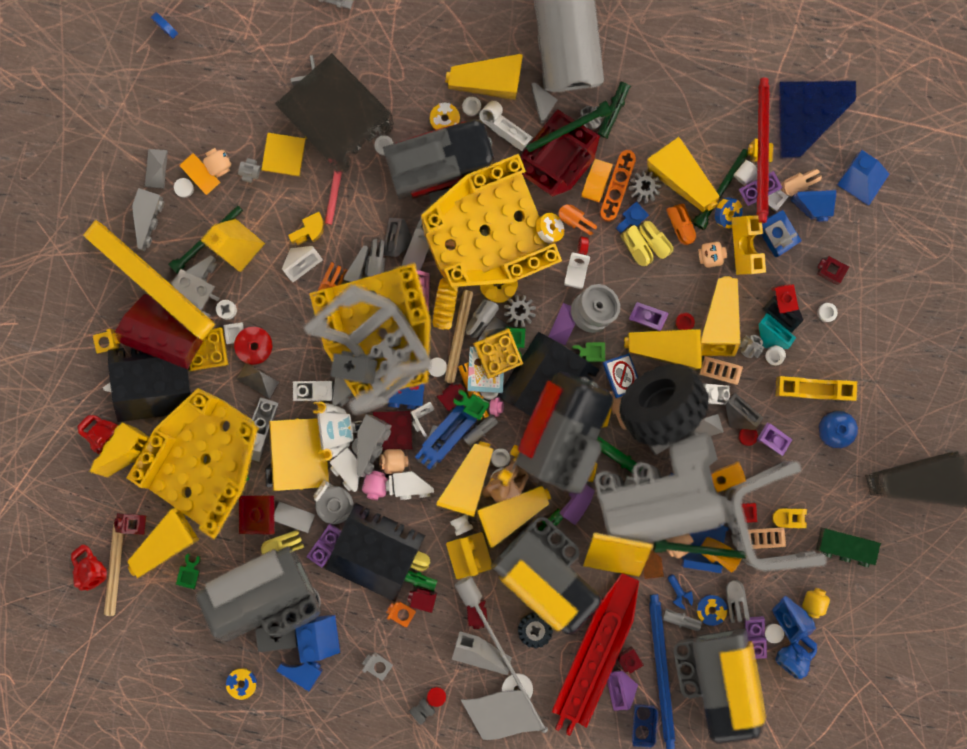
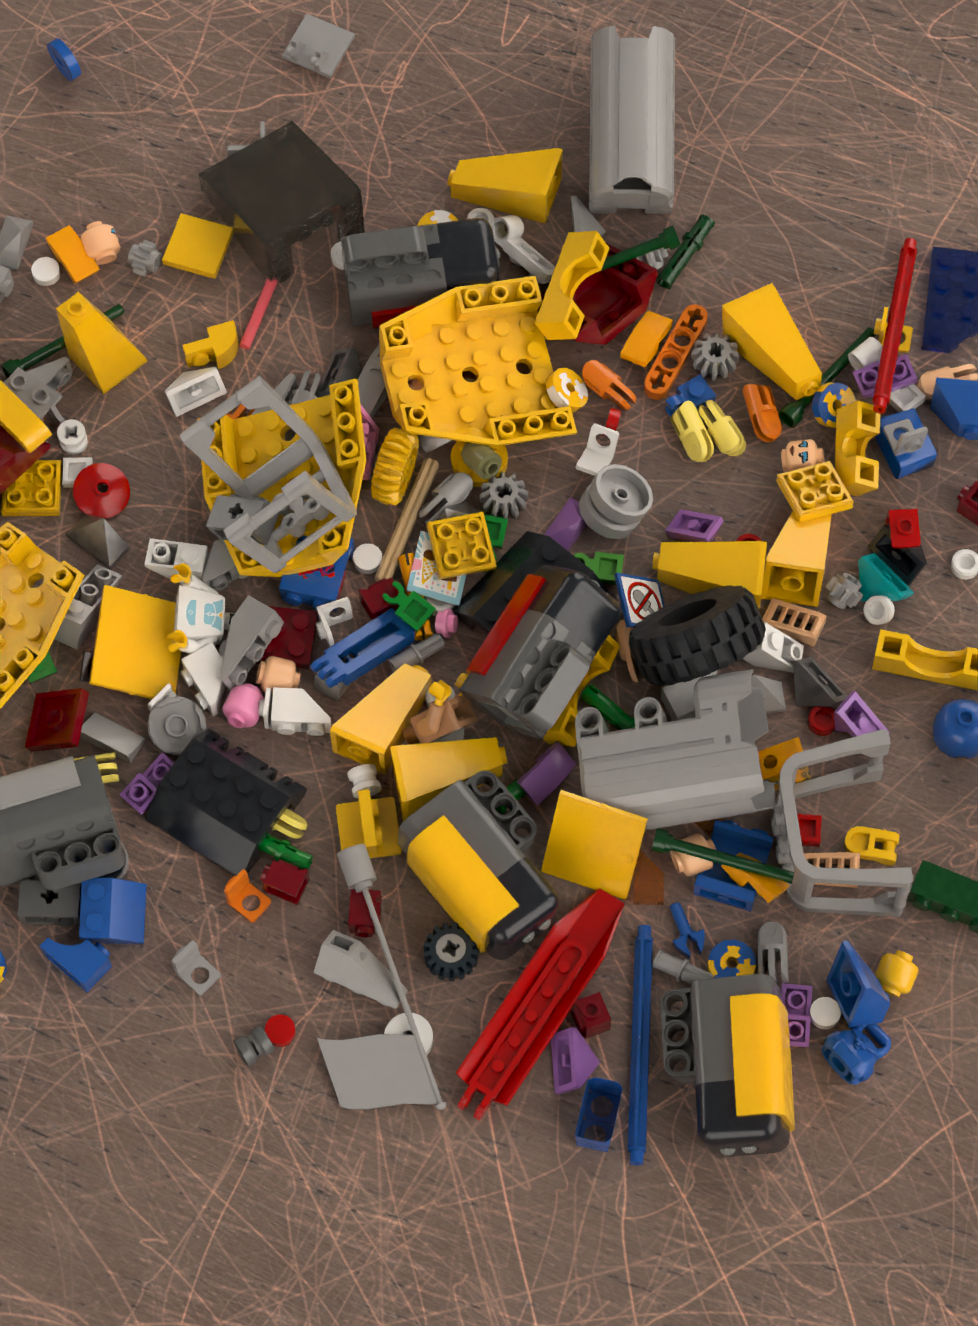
camera: 15 degrees right, 20 degrees down
(503, 293) = (481, 459): none -> olive brick
(546, 132) = (579, 258): none -> yellow arch
(725, 282) = (814, 491): none -> yellow tile

